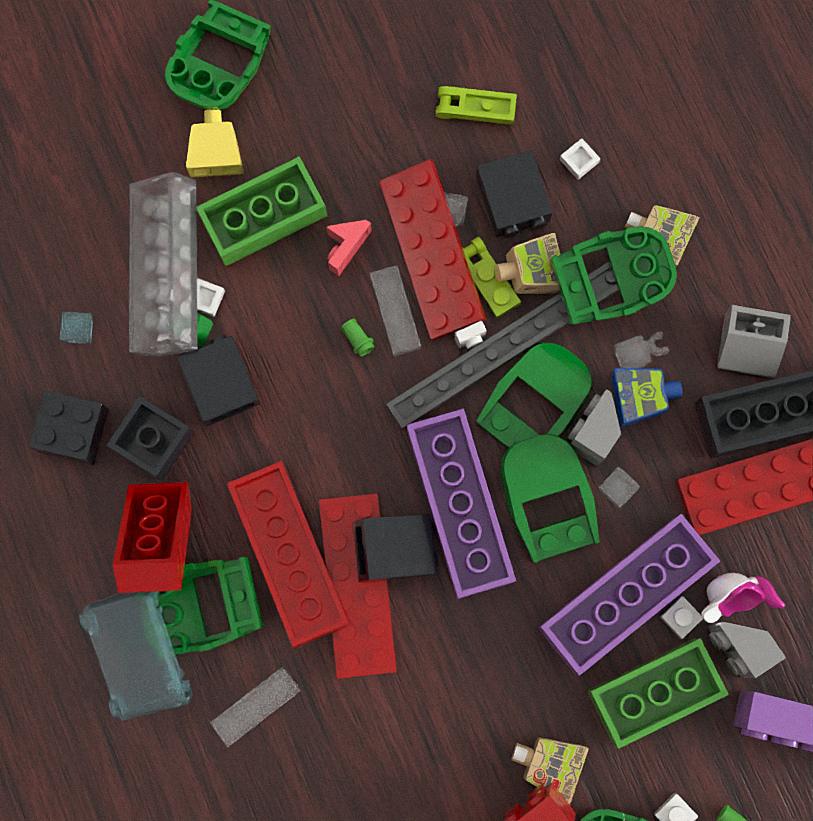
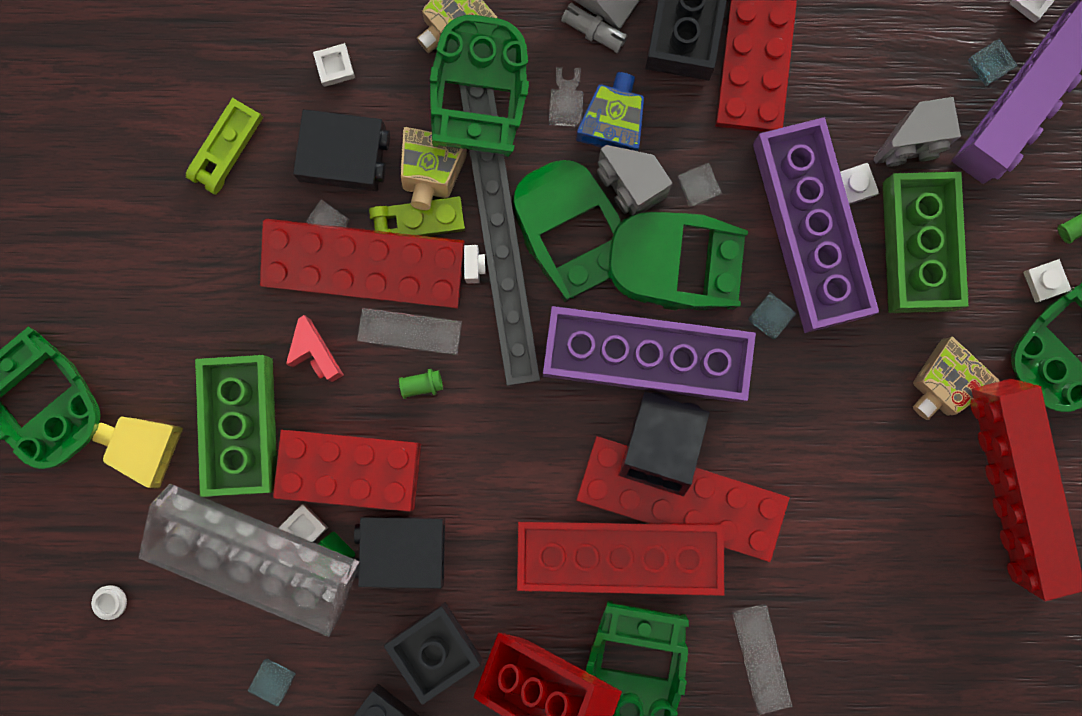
camera: 65 degrees left, 5 degrees up
(86, 179) = (109, 602): none -> white plate
(264, 311) = (347, 470): none -> red brick
(539, 594) = (772, 316): none -> clear light blue plate
(708, 347) = (594, 28): none -> light grey pin
(738, 593) = (858, 115): hair -> none

